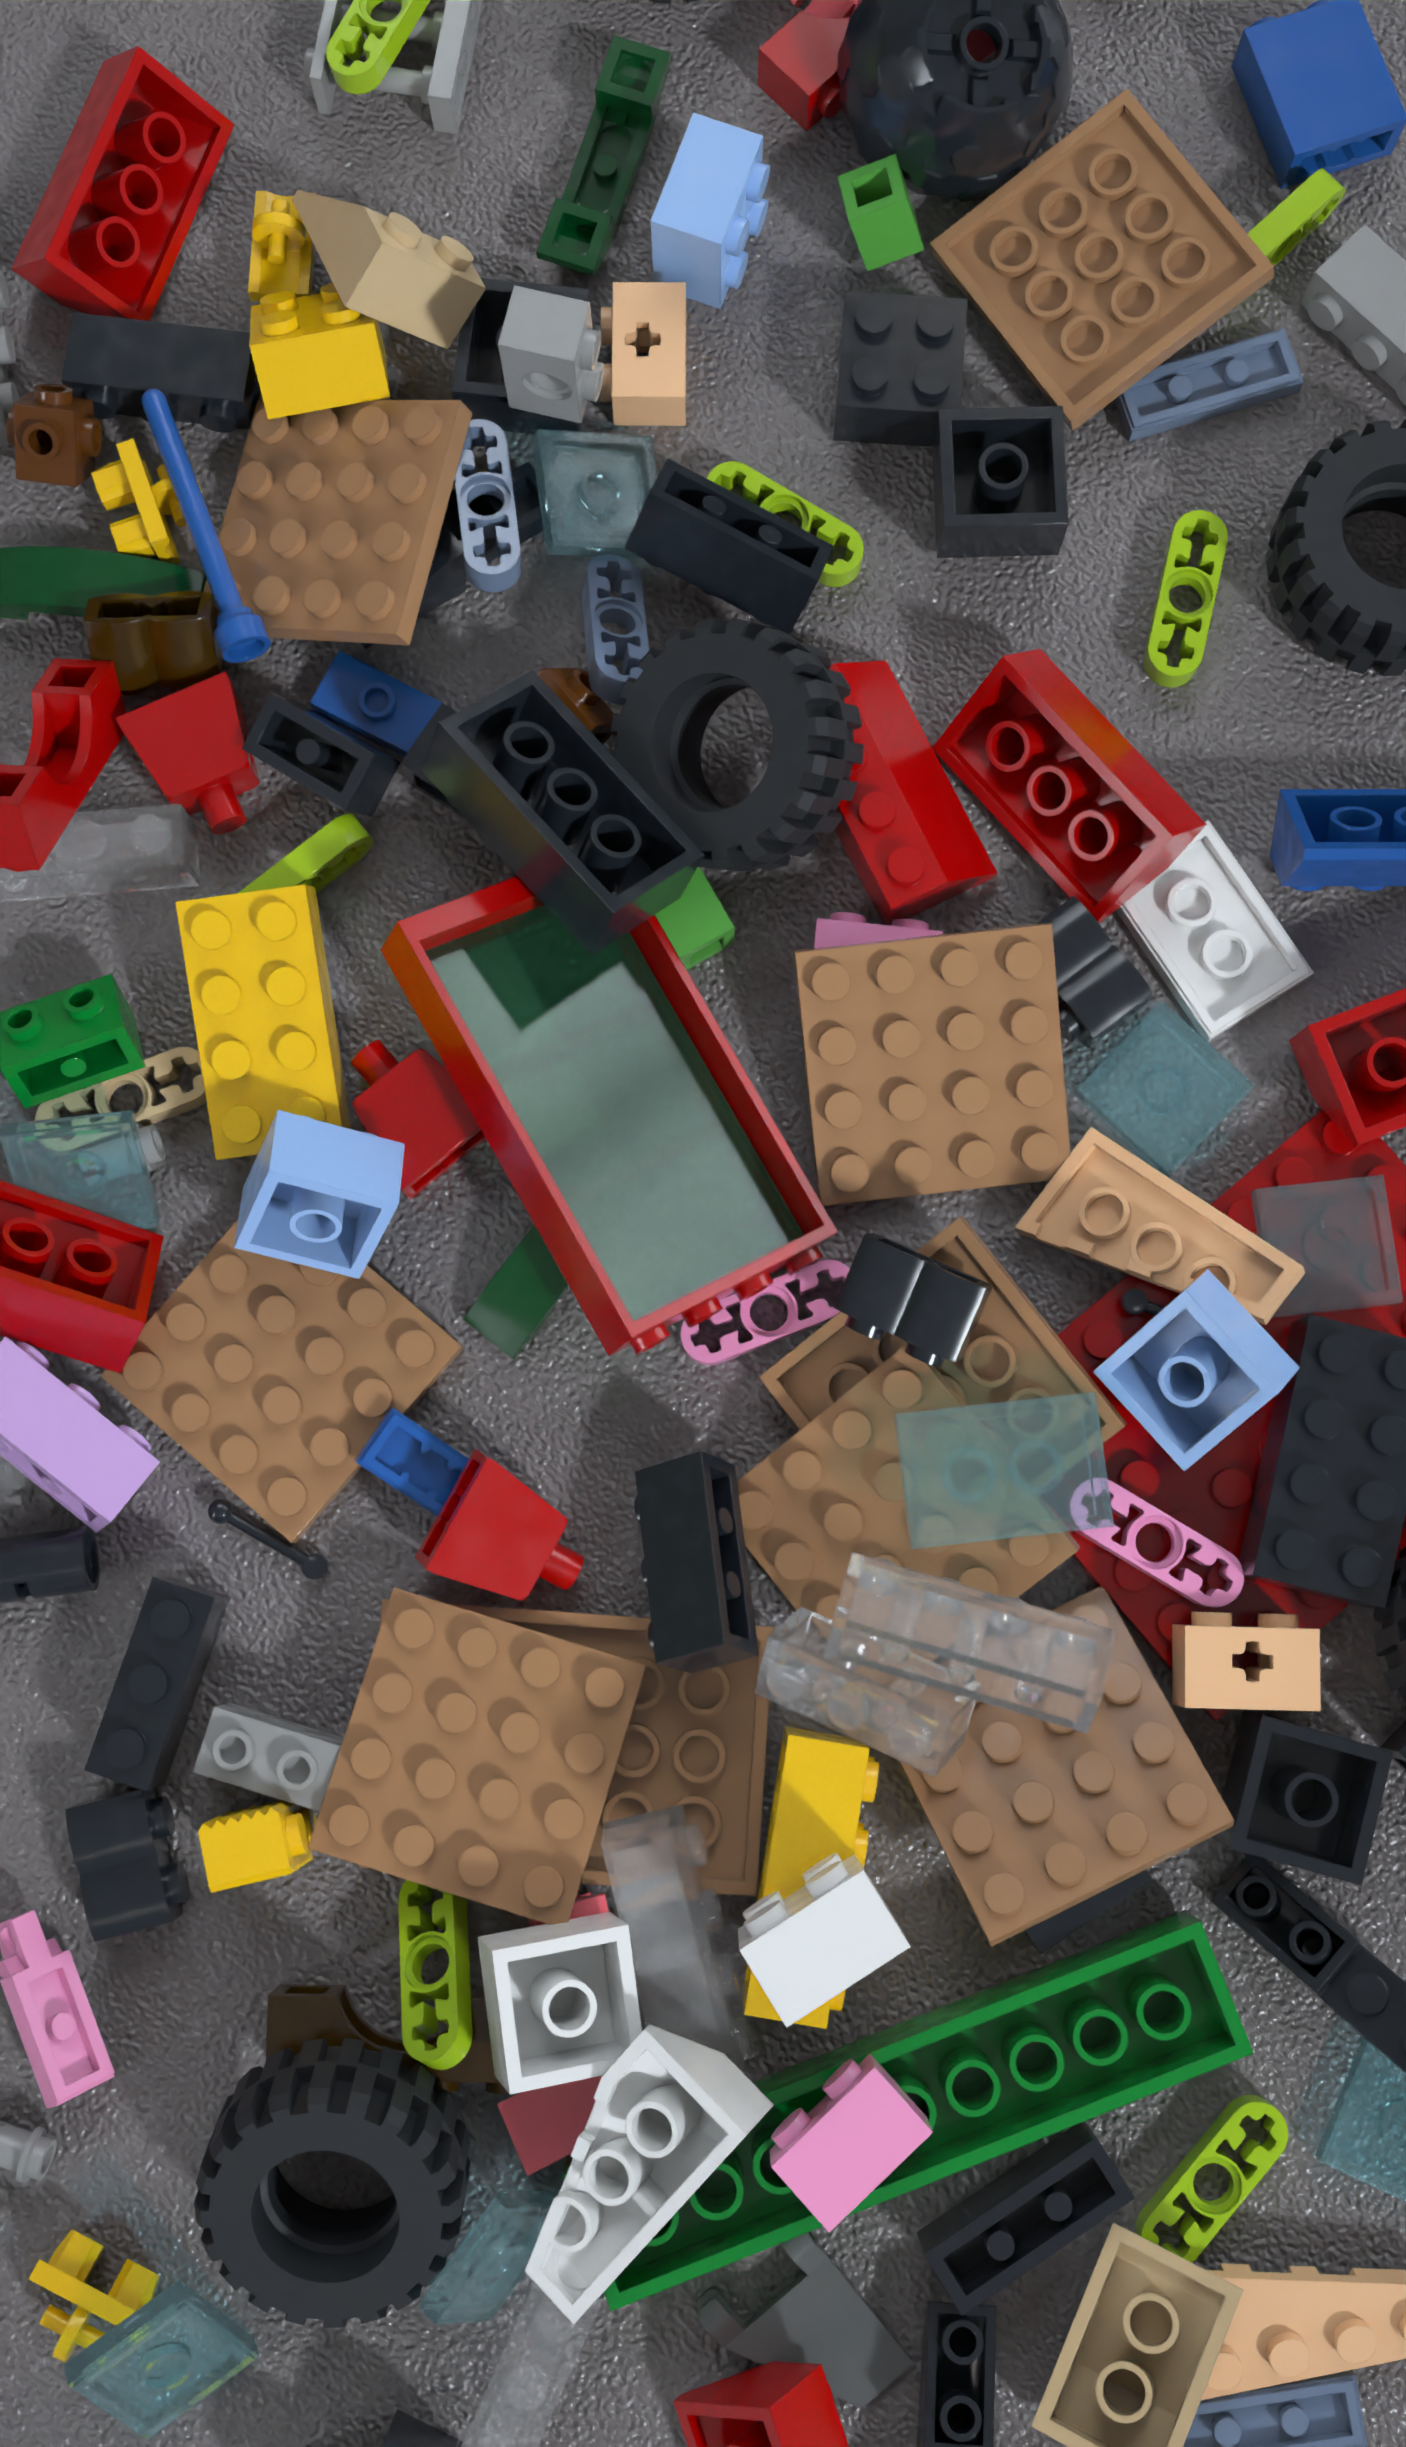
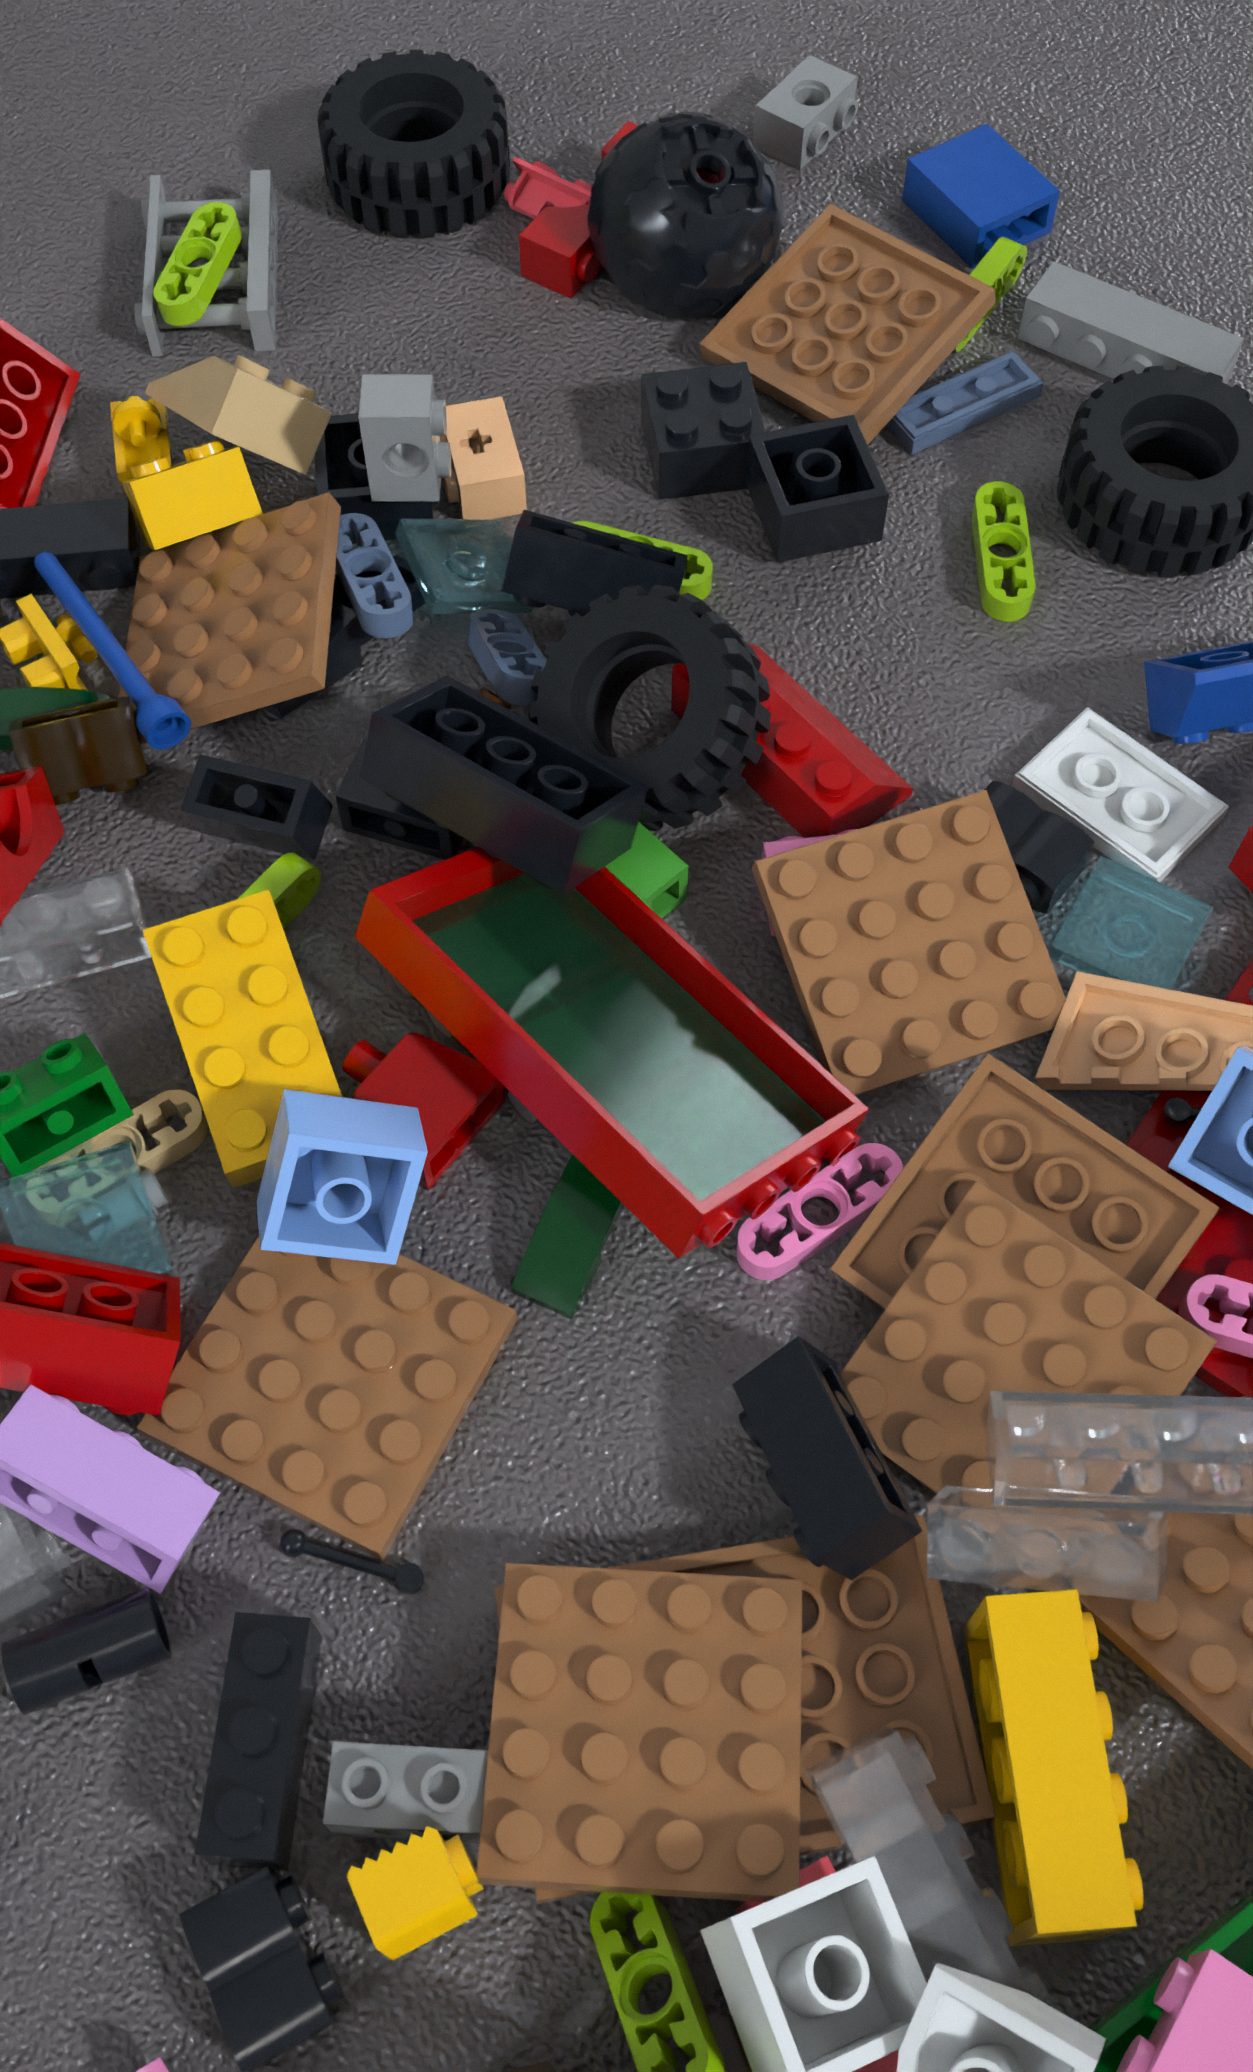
camera: 15 degrees left, 20 degrees down
(196, 749) = (135, 825): red torso -> none
(373, 703) = (301, 759): blue plate -> none
(412, 1460) = (510, 1442): blue plate -> none
(498, 1534) = (605, 1483): red torso -> none
(608, 158) = (414, 313): dark green slope -> none
(710, 210) = (509, 341): light blue brick -> none
(819, 1937) = (1107, 1794): white brick -> none
(880, 212) = (654, 325): bright green brick -> none
(913, 1299) = (968, 1134): black brick -> none
(1003, 1470) = (1115, 1274): clear light blue tile -> none
(1066, 783) = (953, 698): red slope -> none

